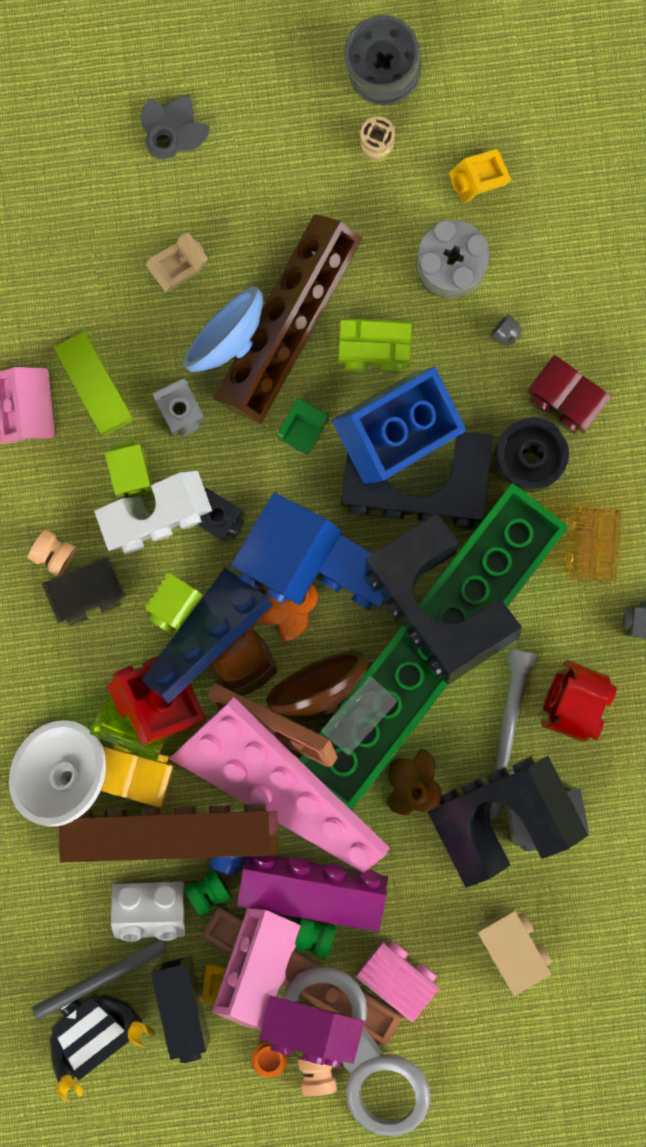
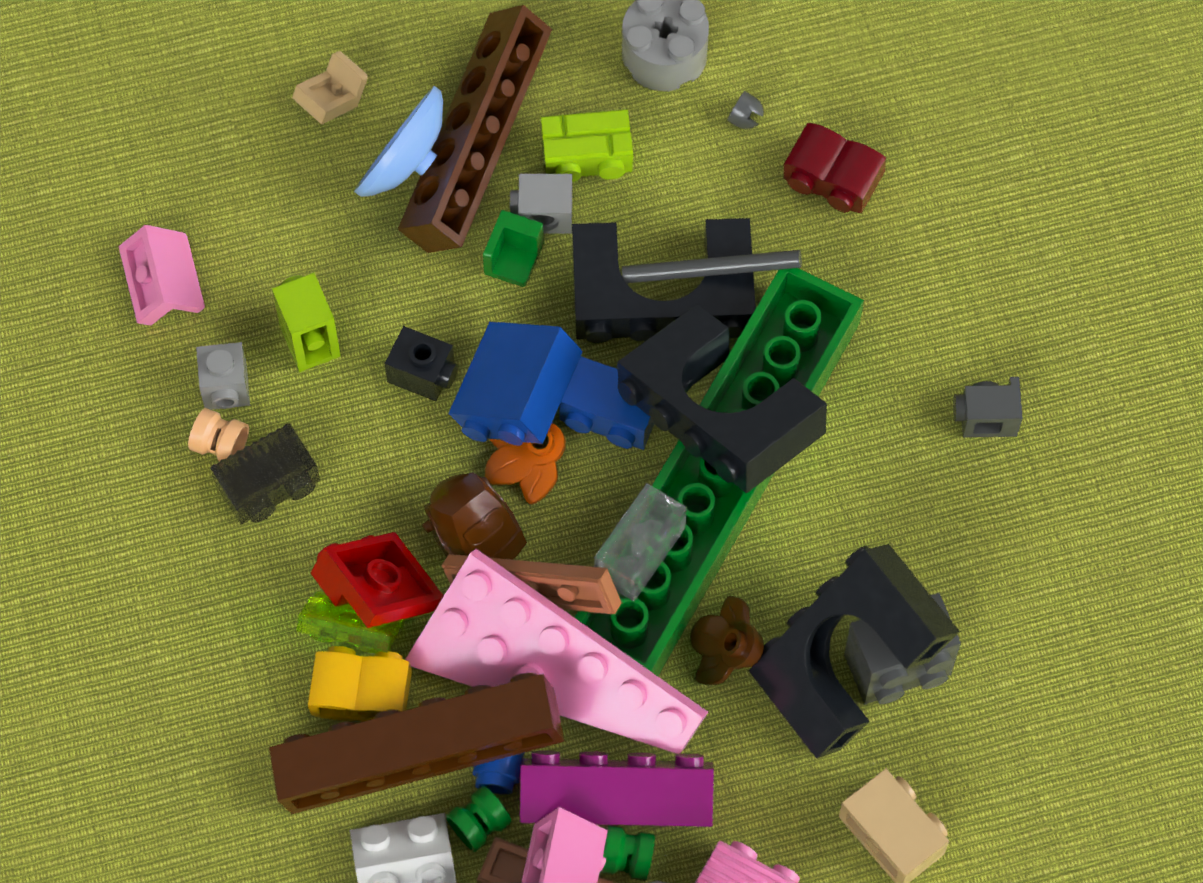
camera: 10 degrees left, 20 degrees down
(44, 766) = (259, 692): white dish -> none
(61, 505) = (223, 376): none -> light grey brick
(93, 384) = (247, 238): lime slope -> none
(172, 603) = (384, 463): lime brick -> none
(178, 502) = (372, 343): white arch -> none
(179, 393) = (342, 244): light grey brick -> none
(208, 631) = (431, 486): dark blue wing -> none
(318, 685) = (585, 534): reddish brown dish -> none
(331, 390) = (545, 200): none -> light grey brick
(399, 425) = (631, 212): blue brick -> none
(464, 478) = (712, 266): none -> dark grey bar
(520, 665) = (835, 480): light grey piece -> none
(548, 446) = (804, 221): black brick -> none
(578, 702) = (916, 508): red brick -> none
(593, 545) = (899, 330): clear yellow brick -> none

